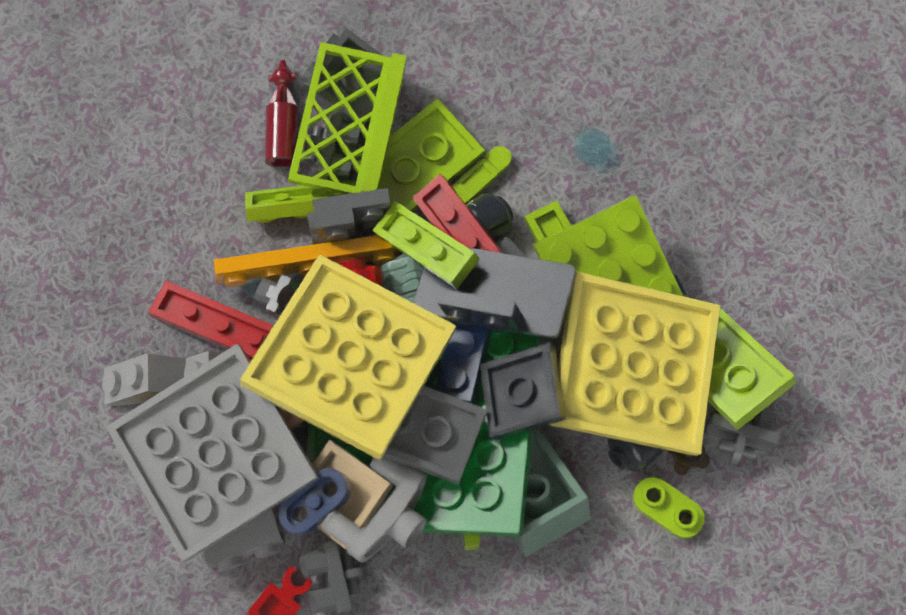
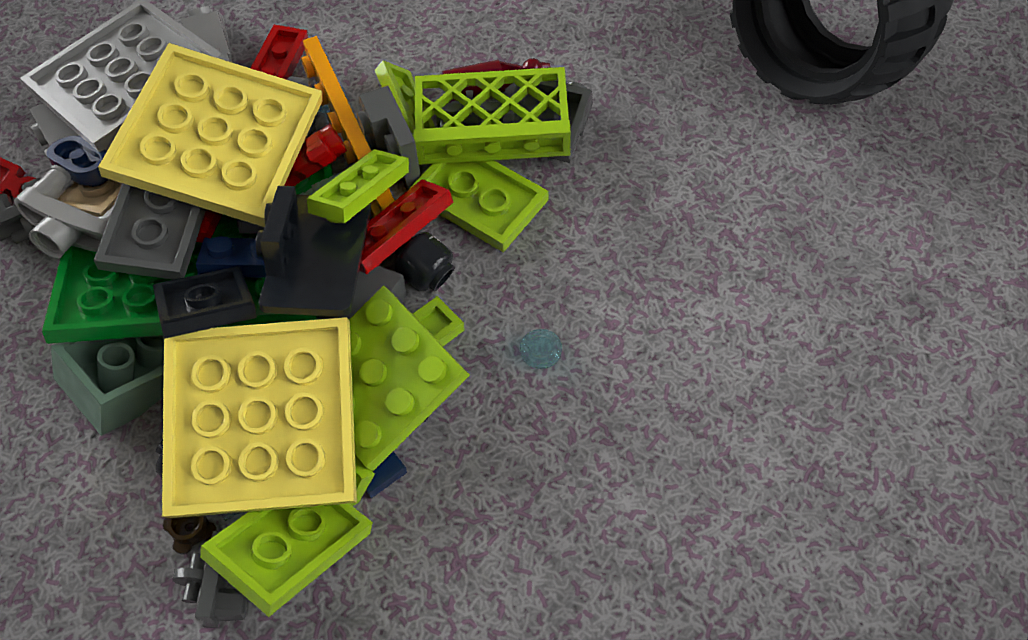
camera: 80 degrees right, 15 degrees down
(483, 173) = (475, 252): lime piece -> none
(667, 509) = (123, 517): lime plate -> none

